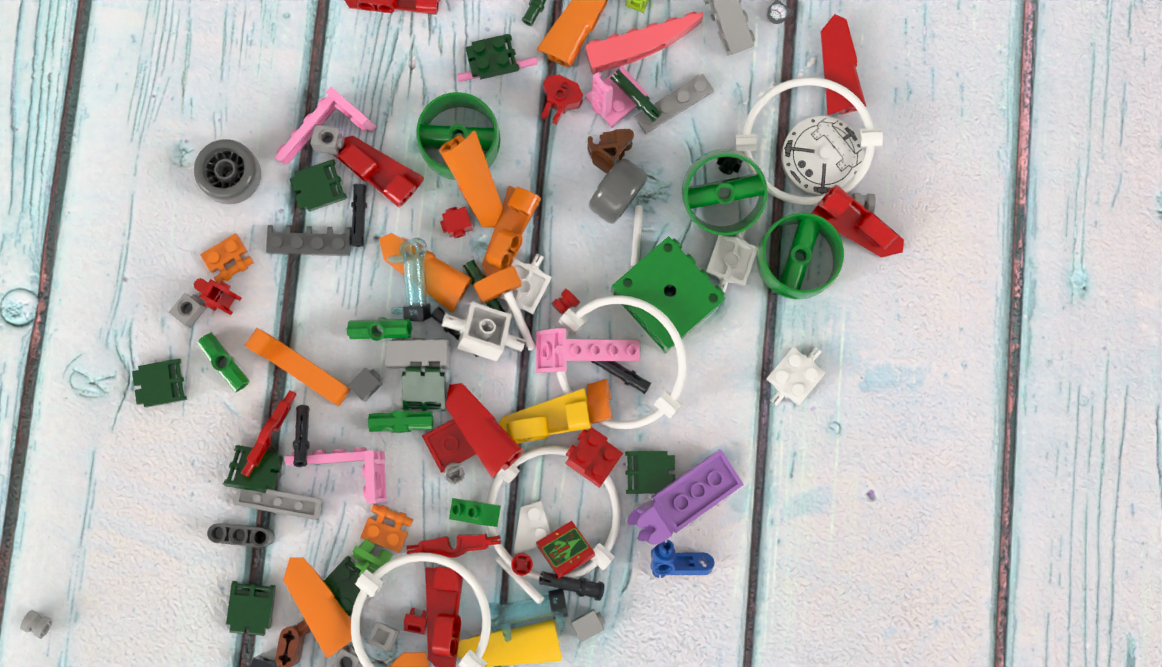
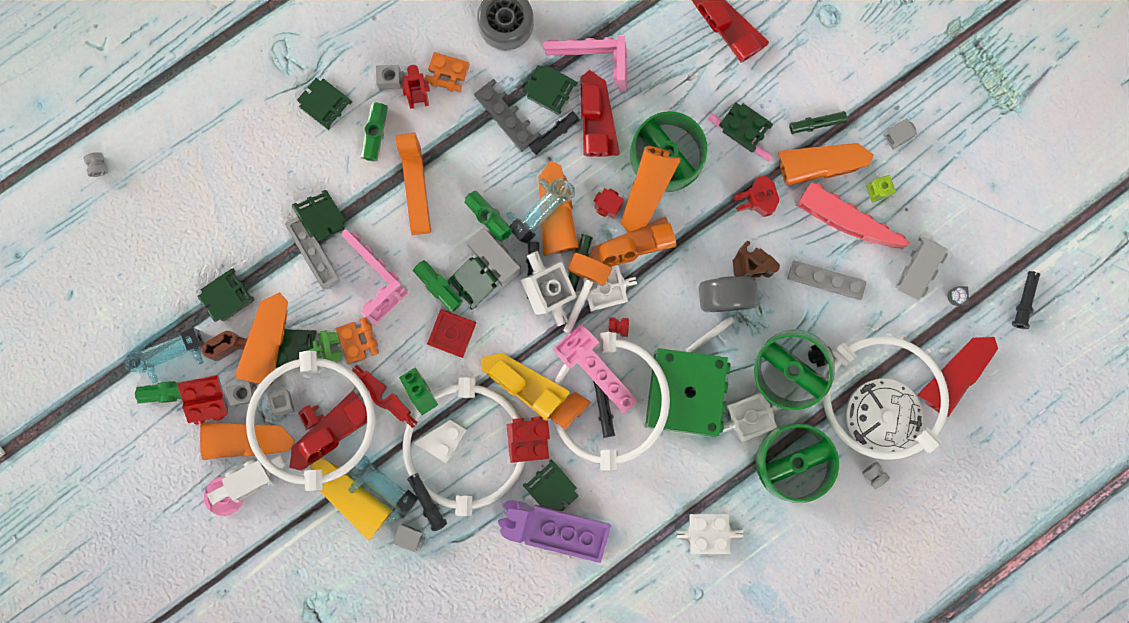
camera: 45 degrees right, 0 degrees up
(230, 535) = (264, 238): dark grey beam -> none
(264, 438) = (344, 205): red piece -> none
(301, 443) = (363, 232): black pin -> none
(319, 135) = (586, 58): light grey brick -> none
(365, 384) = (442, 240): dark grey brick -> none
(454, 478) = (430, 357): light grey bush -> none
(482, 431) = (479, 346): red panel -> none
(522, 564) = (410, 452): red wheel -> none
(534, 594) = (399, 465): white bar -> none
(565, 549) = (447, 476): tile -> none
(609, 99) = (795, 234): bright pink bracket -> none
(643, 102) = (807, 248): dark green pin -> none
(668, 562) = (499, 556): blue piece -> none
(858, 223) = (857, 484): red panel -> none

